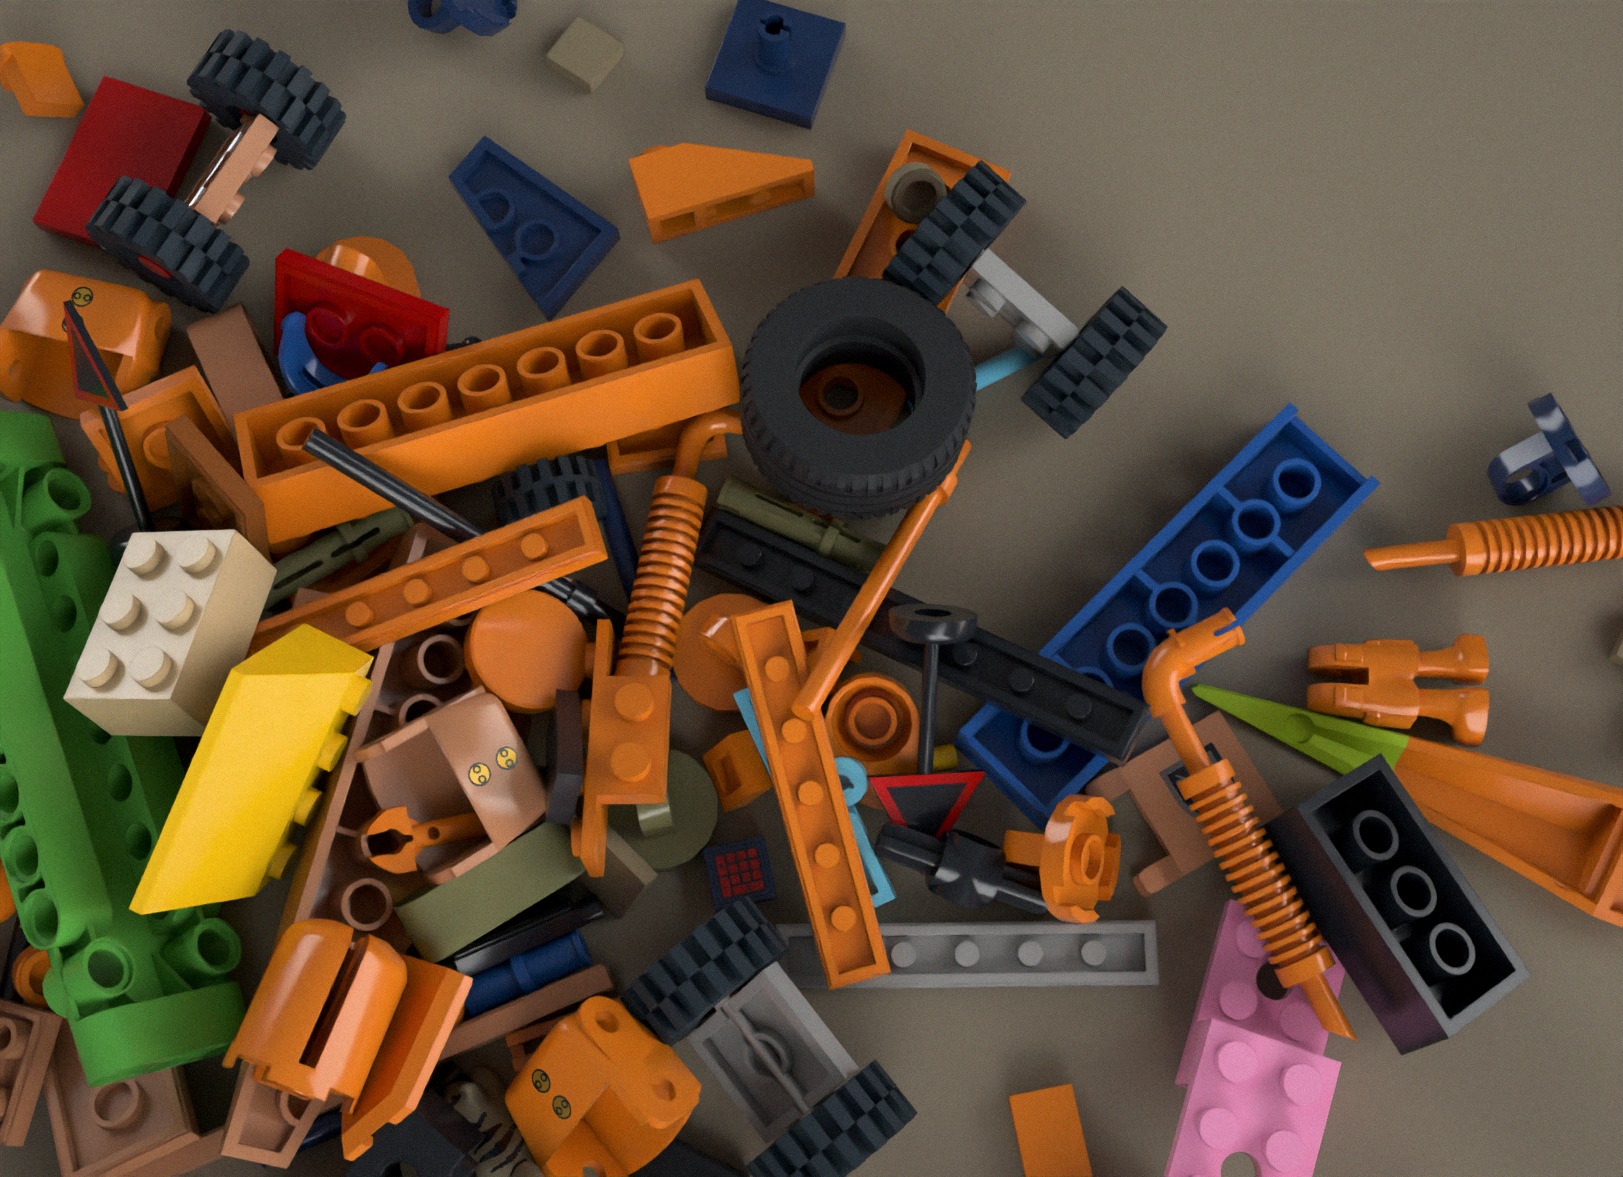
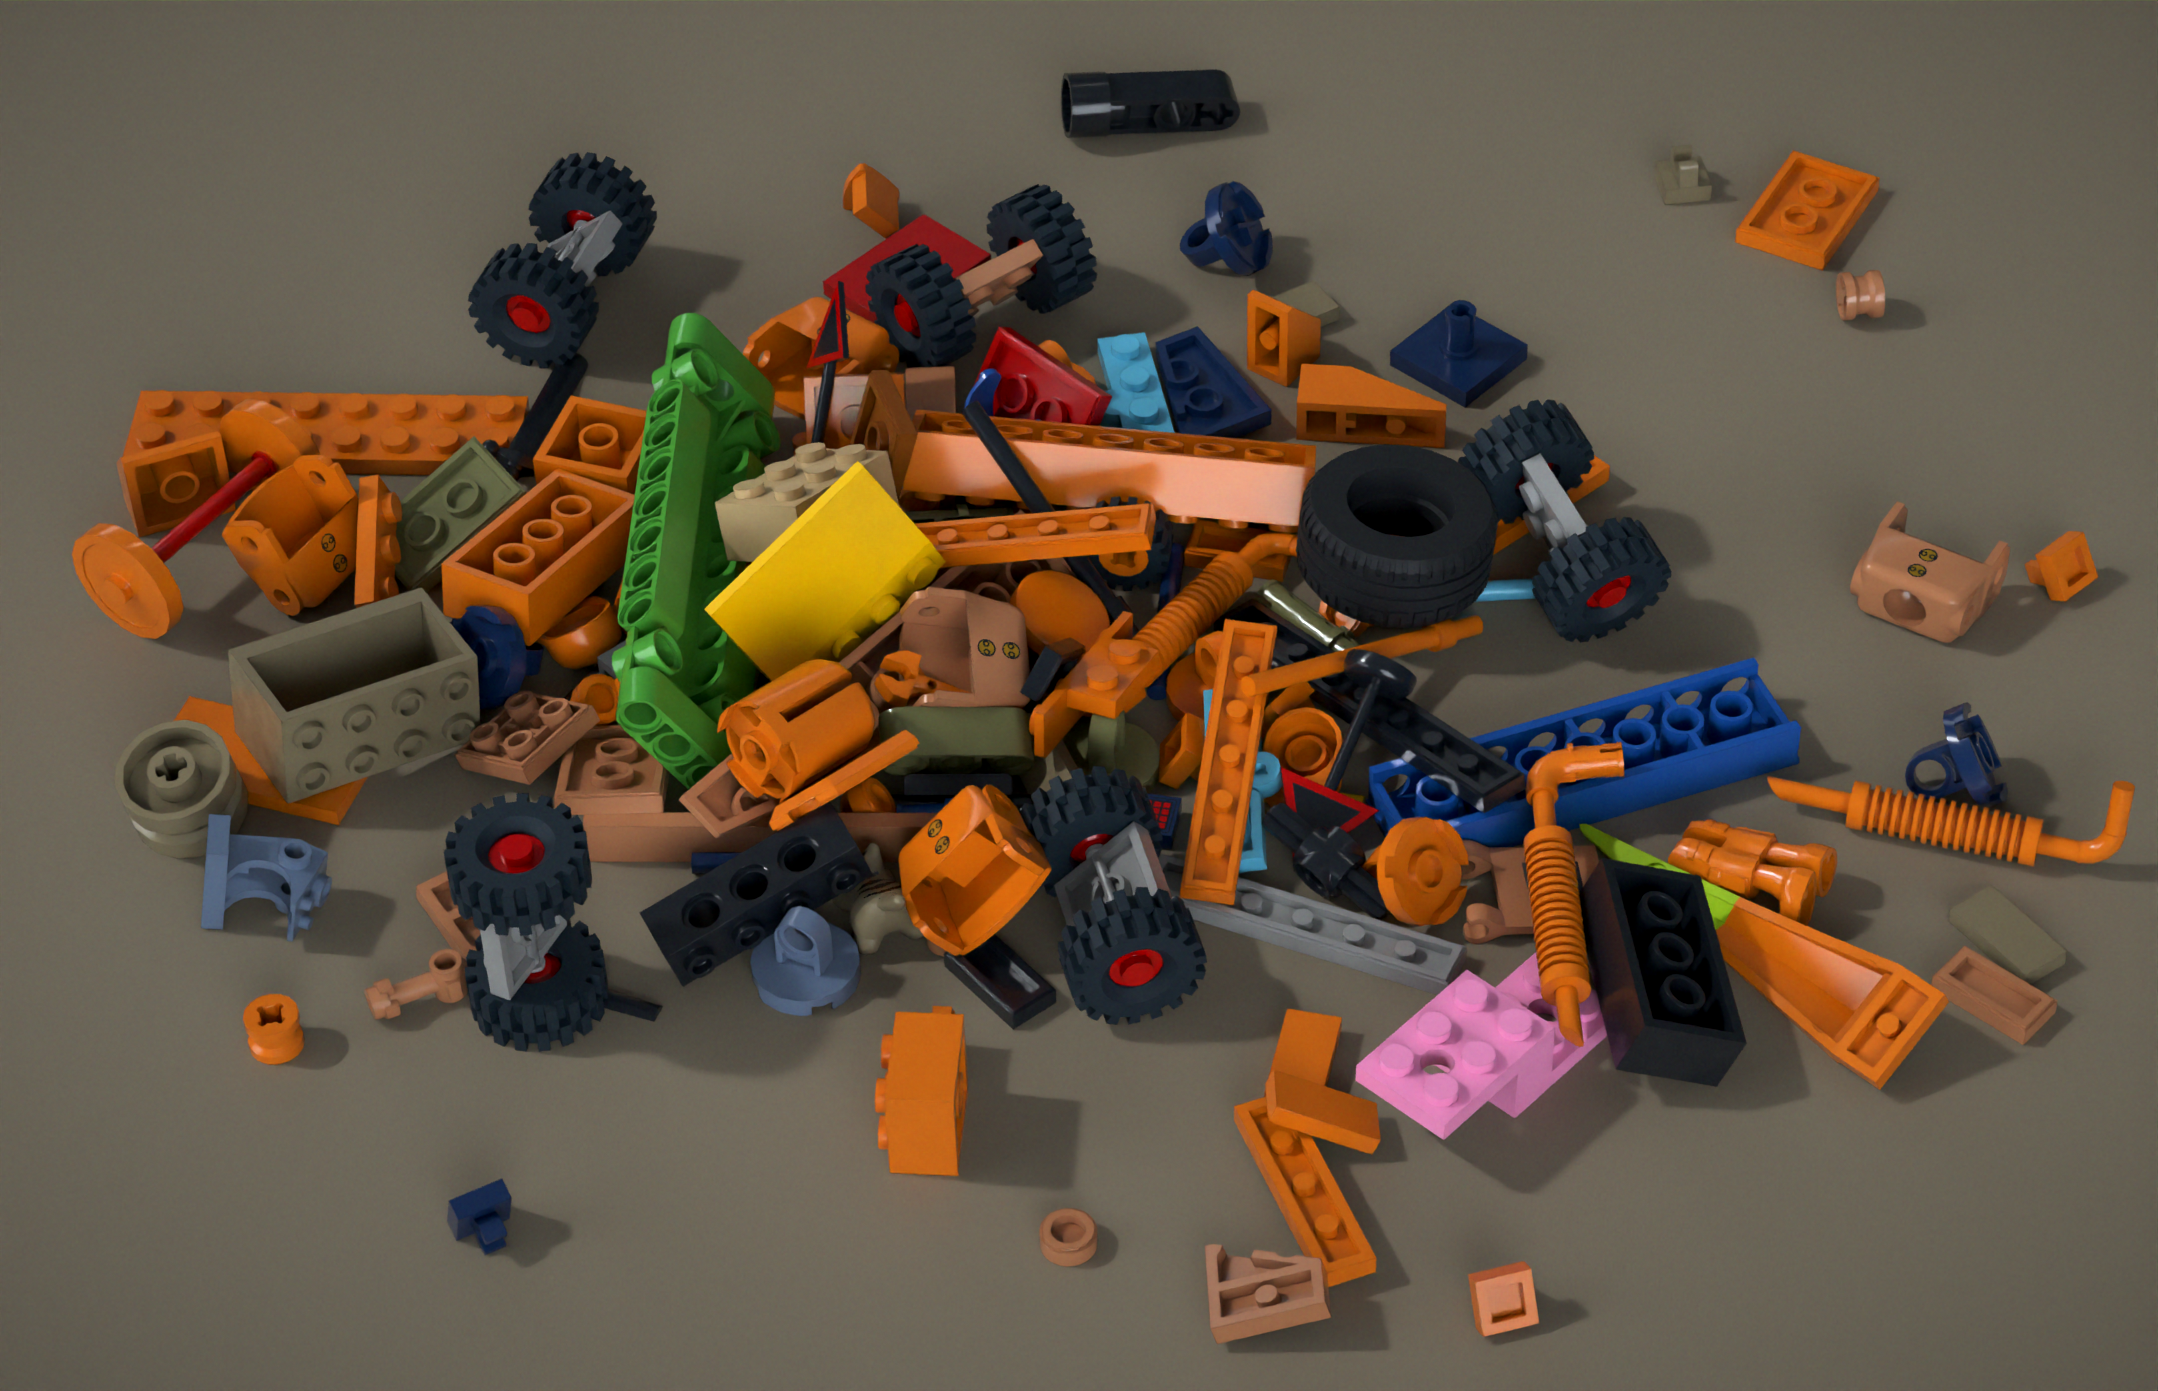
camera: 25 degrees right, 30 degrees down
(456, 257) = (1133, 384): none -> medium azure hinge
(584, 120) = (1280, 338): none -> orange slope
(1401, 208) = (1925, 583): none -> nougat piece
(1525, 130) = (2063, 566): none -> orange tile

